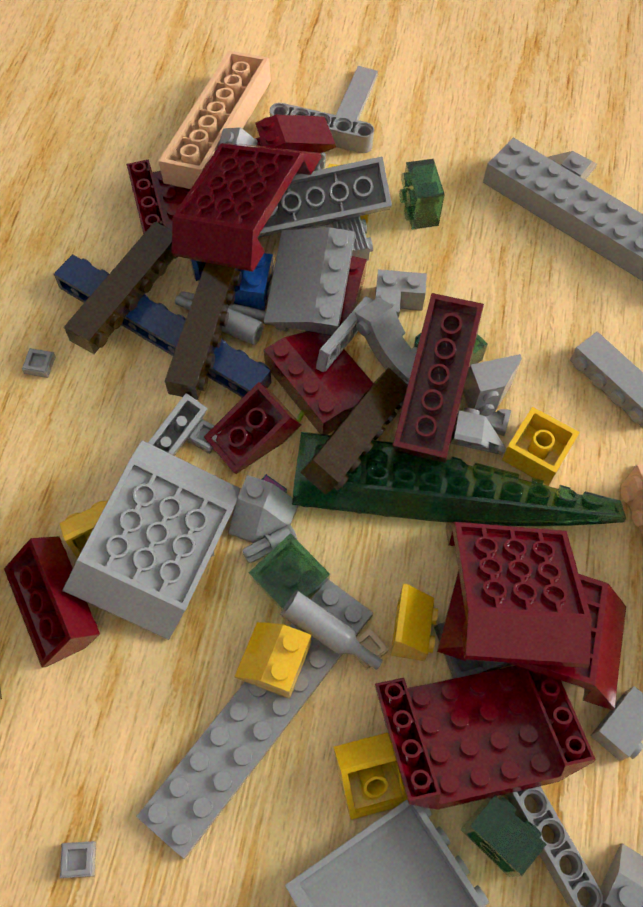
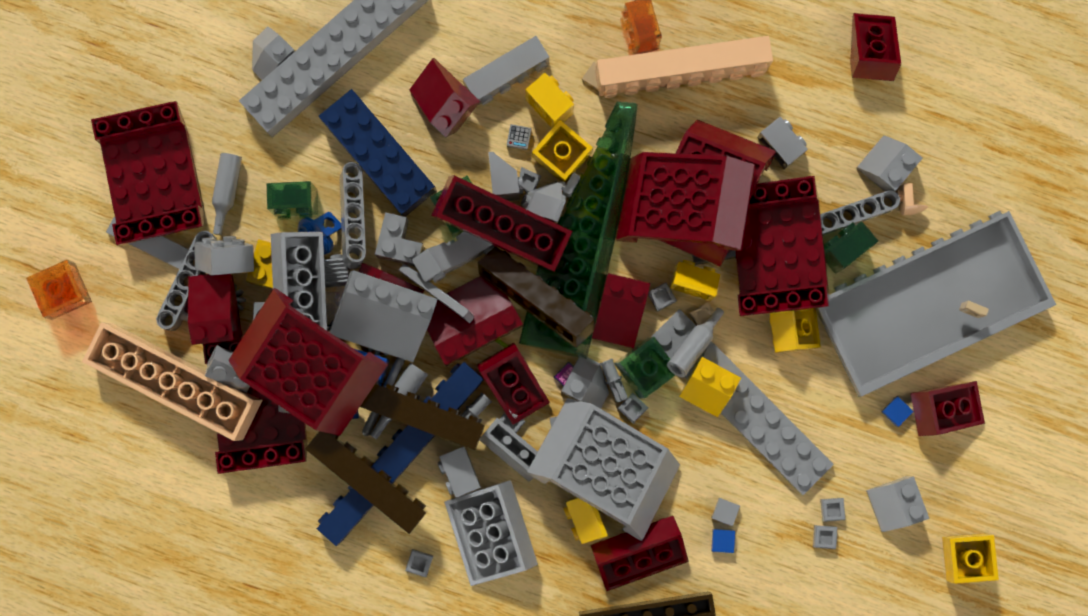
camera: 85 degrees left, 20 degrees up
(69, 709) = (723, 541): none -> blue tile
(73, 430) = (491, 533): none -> light grey slope
(109, 708) = (725, 511): none -> light grey tile
(118, 867) = (832, 509): none -> light grey tile
(141, 387) = (459, 472): none -> light grey brick
(215, 394) = (477, 406): none -> light grey axle
(236, 572) = (632, 408): none -> light grey tile
(296, 34) = (59, 289): none -> clear orange brick
(349, 136) = (224, 256): none -> light grey brick
(360, 540) = (621, 310): none -> dark red slope
(384, 590) = (661, 296): none -> light grey tile
(390, 225) = (310, 225): none -> blue bracket
(421, 145) = (225, 188): none -> light grey piece
(426, 88) = (149, 172): none -> dark red slope
(426, 242) = (355, 206): none -> light grey beam
(495, 258) = (377, 153): none -> dark blue brick
(503, 461) = (574, 179): none -> light grey tile
(547, 402) = (518, 137): none -> light grey tile
(566, 319) = (443, 98): none -> dark red slope
(600, 422) = (549, 100): none -> yellow brick

